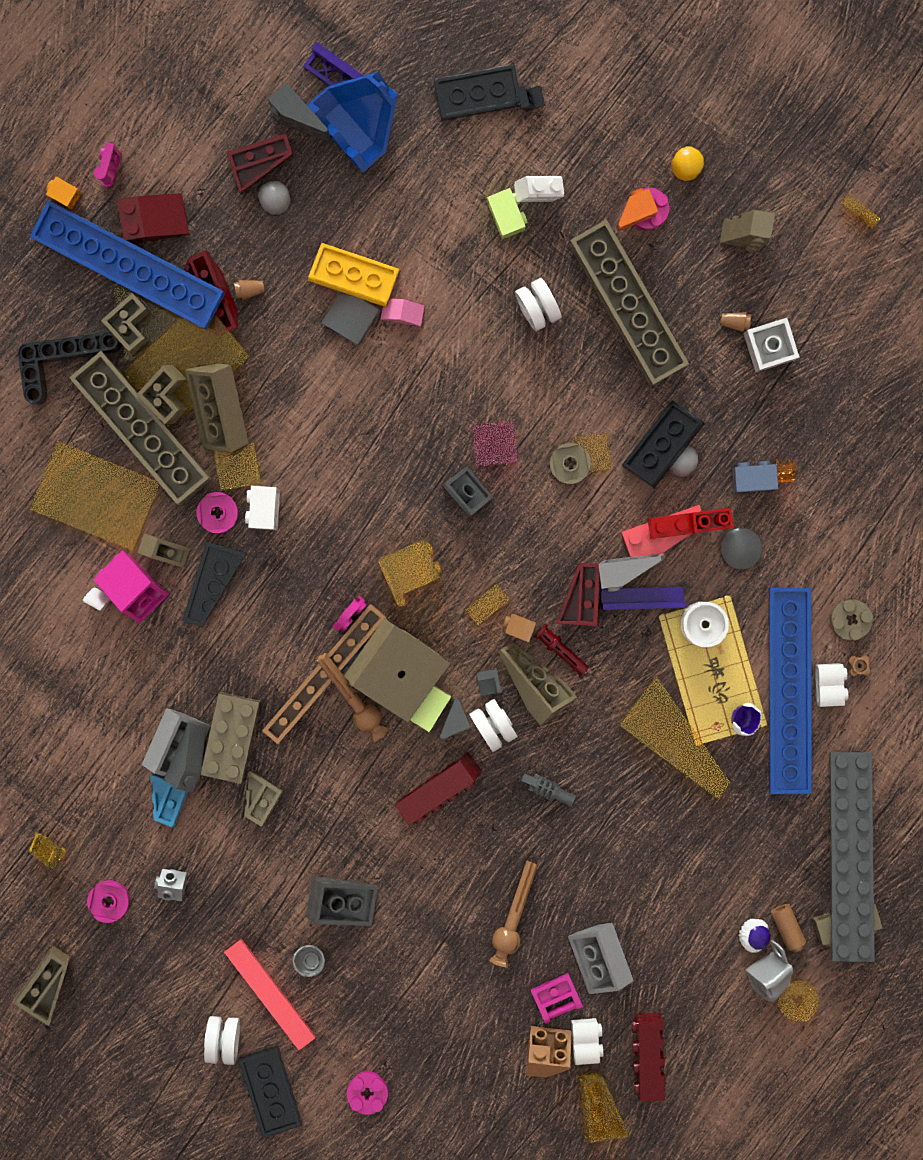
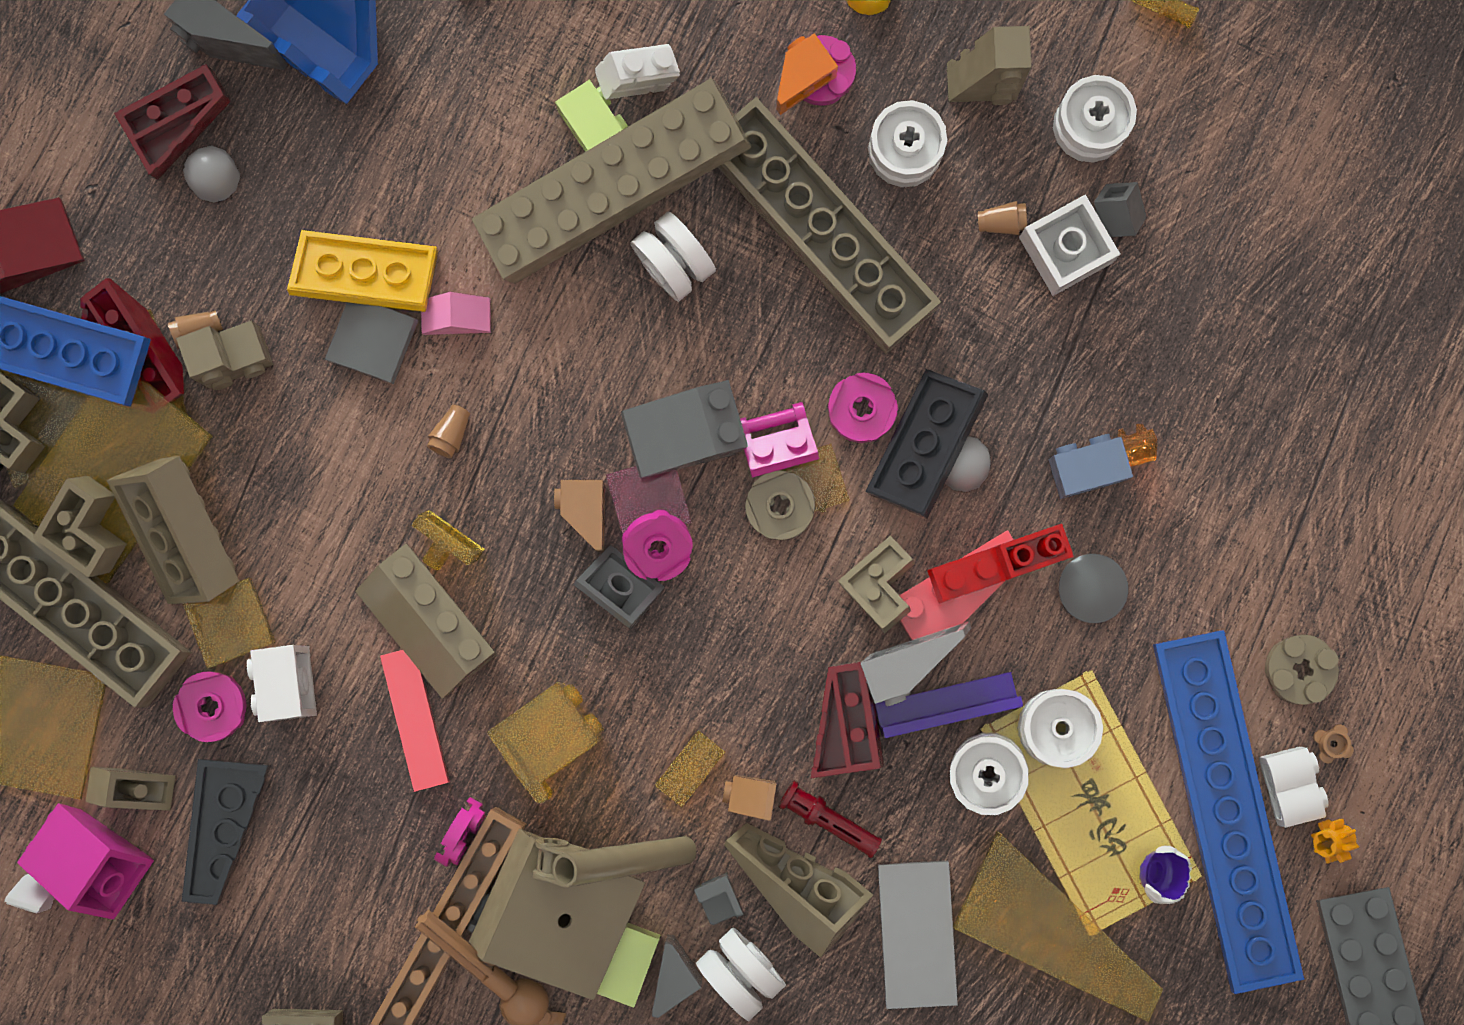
camera: 10 degrees left, 5 degrees down
(265, 309) = (226, 355): none -> dark tan brick
(334, 543) = (414, 721): none -> coral tile
(351, 488) = (425, 621): none -> dark tan slope
(371, 445) = (446, 541): none -> clear yellow tile
(384, 383) = (449, 432): none -> medium nougat cone
(417, 644) = (576, 866): none -> dark tan axle
(455, 442) = (584, 509): none -> medium nougat slope
(490, 462) = (651, 528): none -> dark pink plate
(511, 253) = (611, 182): none -> dark tan brick
(524, 408) = (684, 429): none -> dark grey slope
(577, 430) = (780, 448): none -> plate
(597, 724) = (917, 934): none -> light grey tile
(613, 520) = (871, 581): none -> dark tan plate
(641, 414) = (881, 401): none -> dark pink plate
(654, 653) = (985, 794): none -> white wheel
(698, 256) = (912, 124): none -> white wheel
(806, 329) = (1121, 209): none -> dark grey panel
(810, 262) = (1089, 100): none -> white wheel
(847, 720) = (1334, 841): none -> light orange gear

